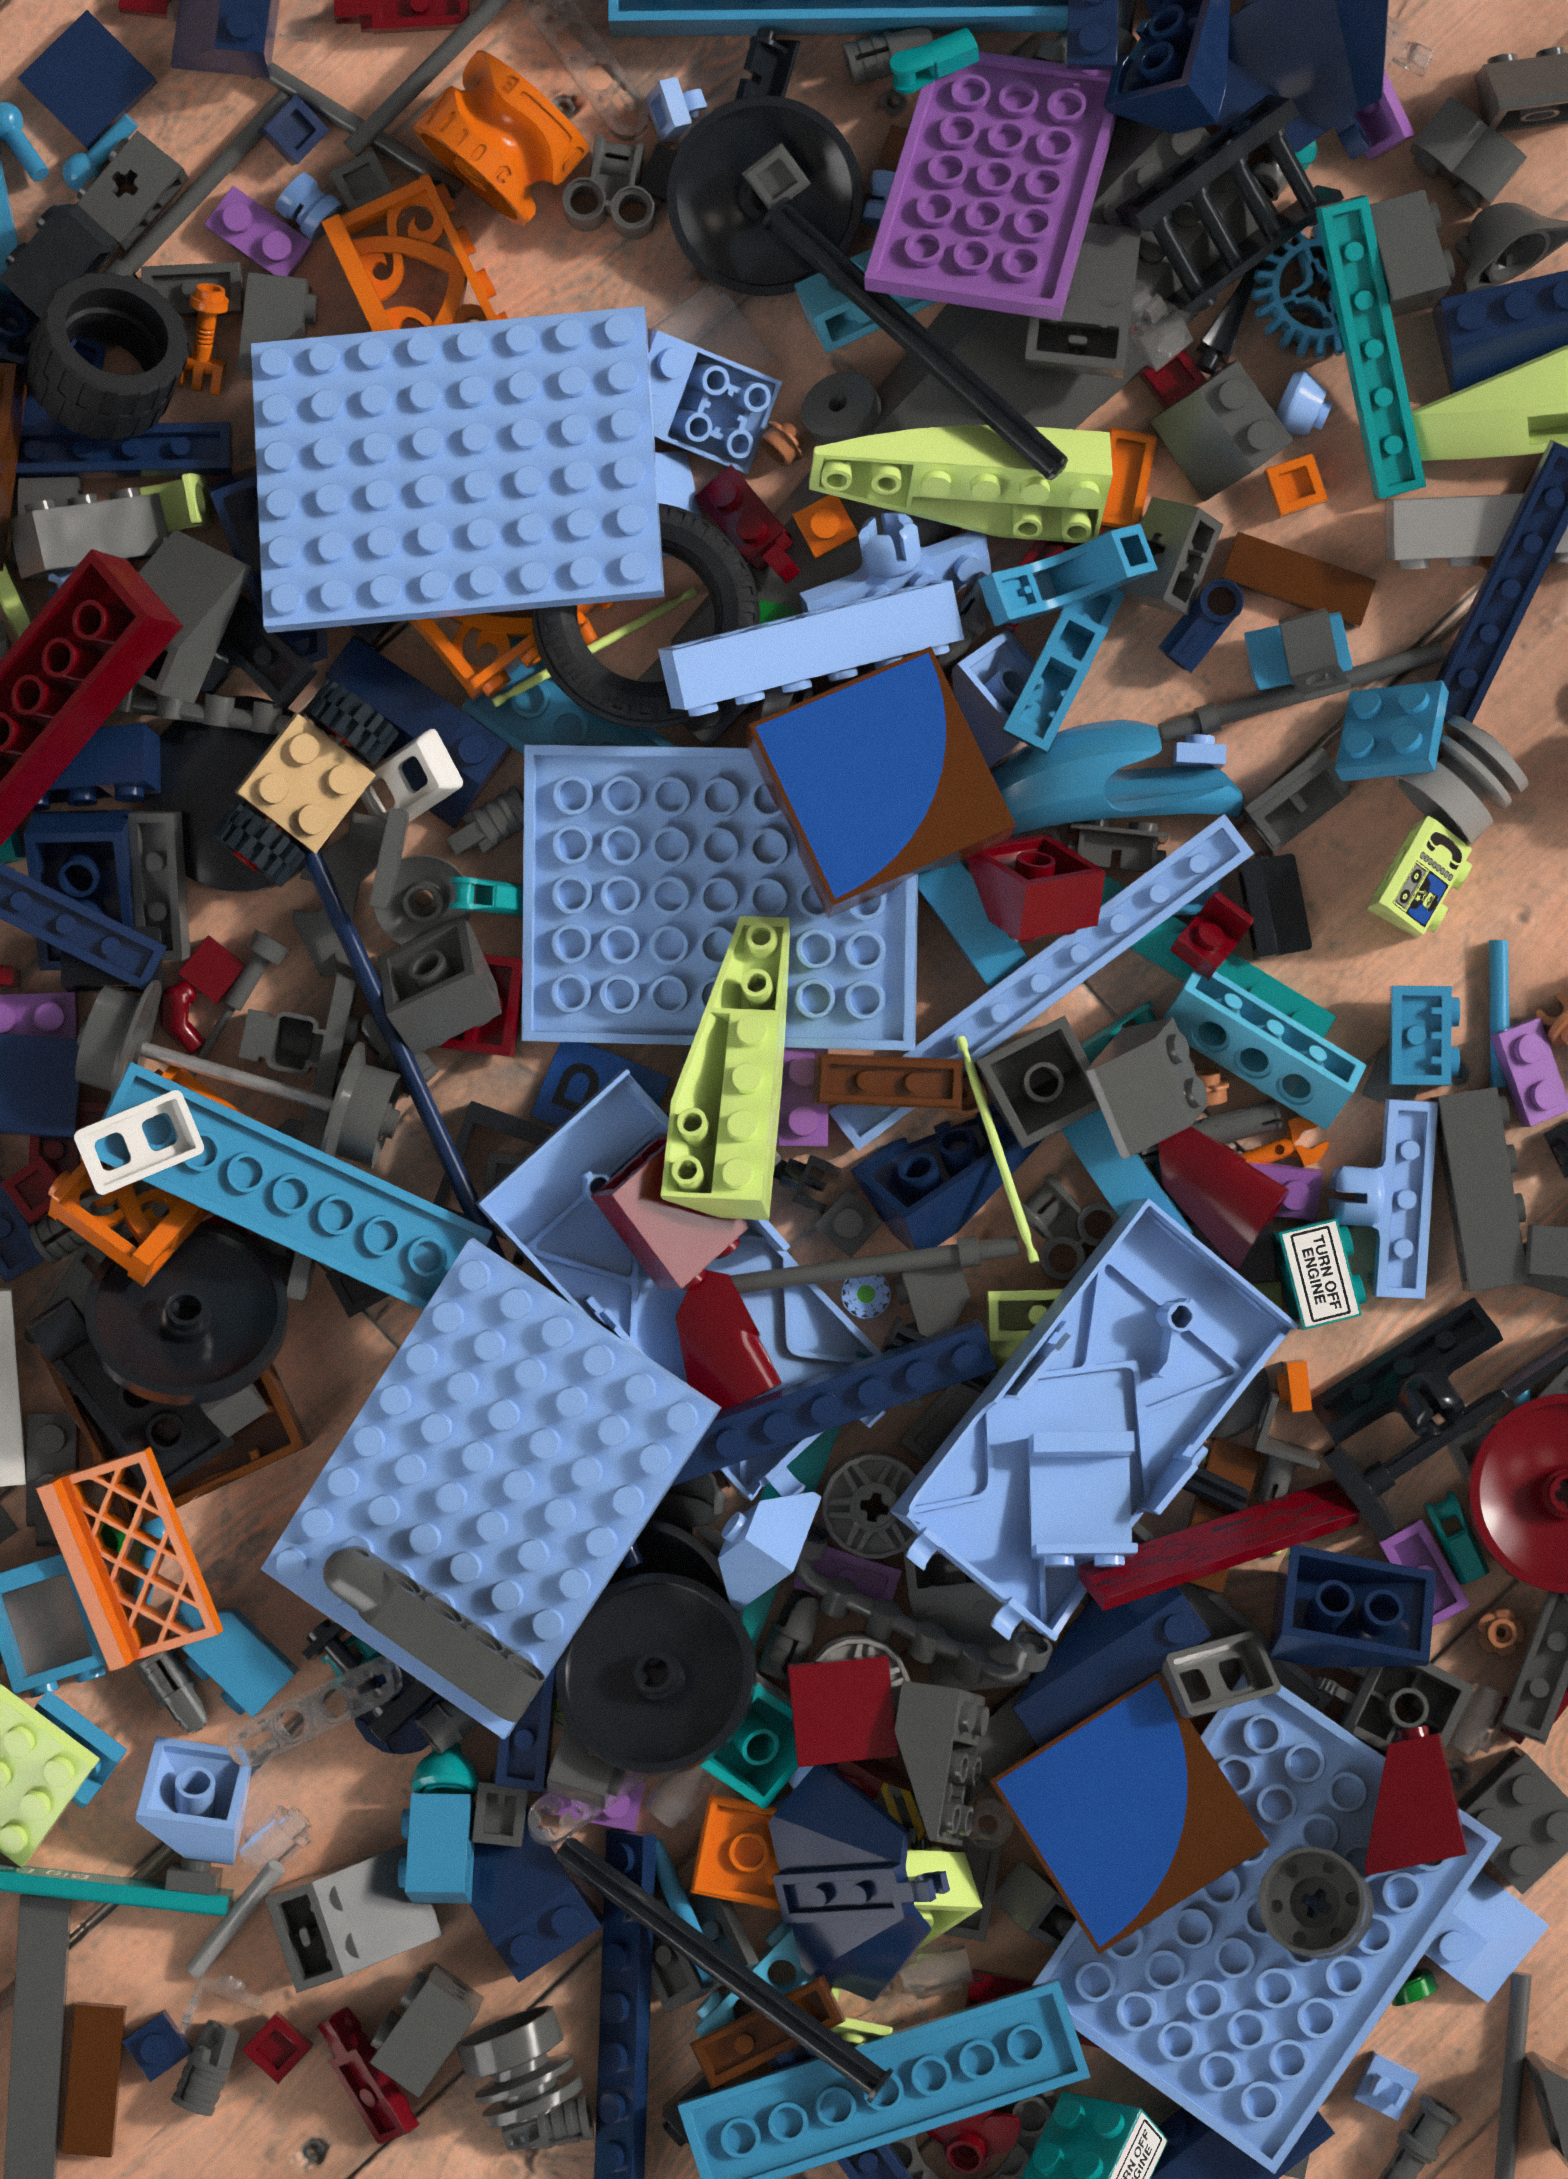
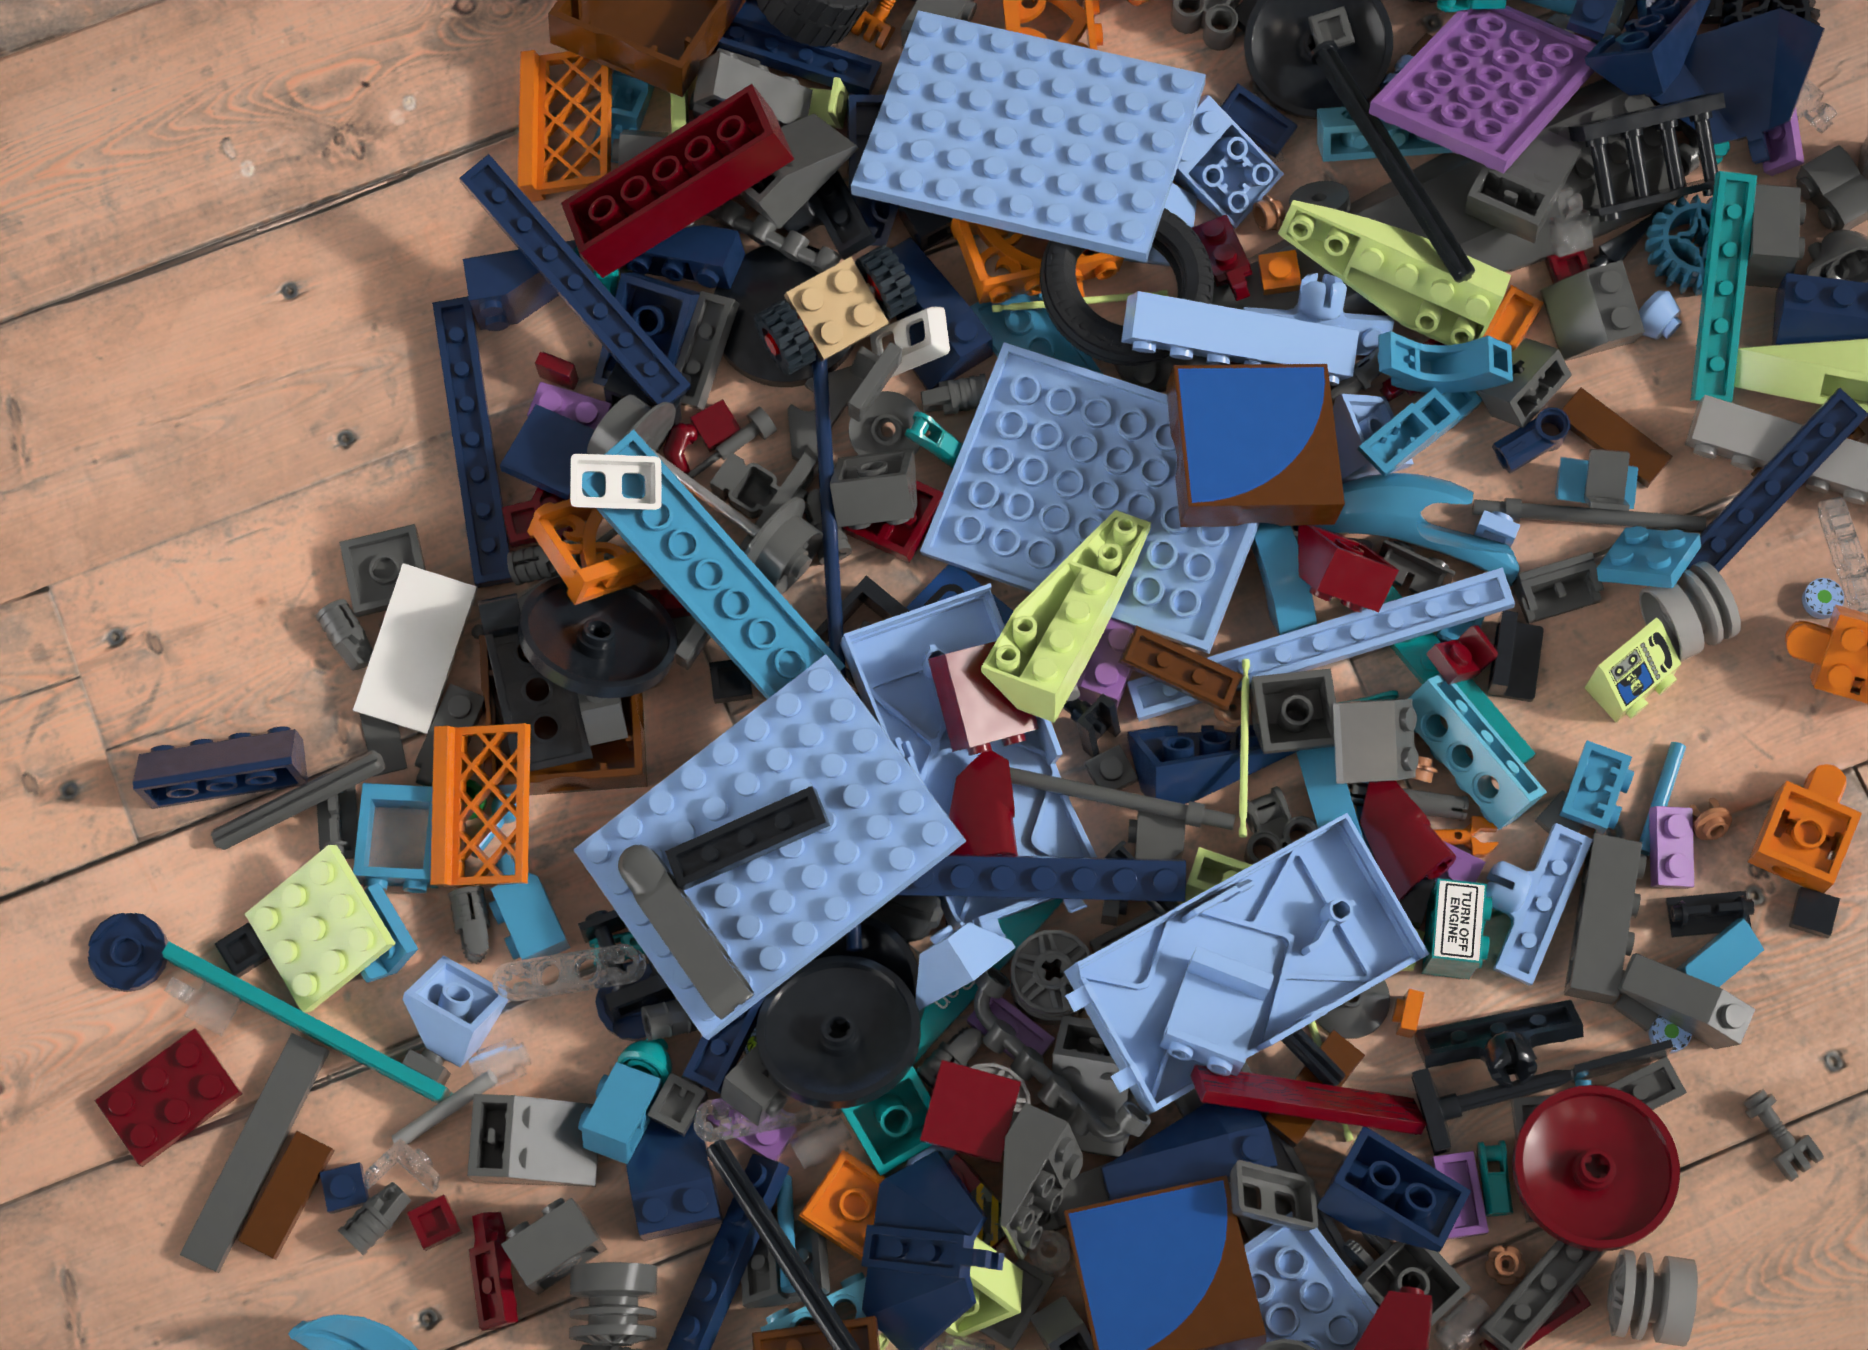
camera: 25 degrees right, 15 degrees down
(465, 1499) = (747, 838): none -> black plate
(723, 323) = (1259, 120): none -> dark blue tile
(866, 1296) = (1104, 827): light blue tile -> none
(1281, 1455) = (1378, 1065): dark grey bracket -> none
(1295, 485) = (1634, 370): orange plate -> none

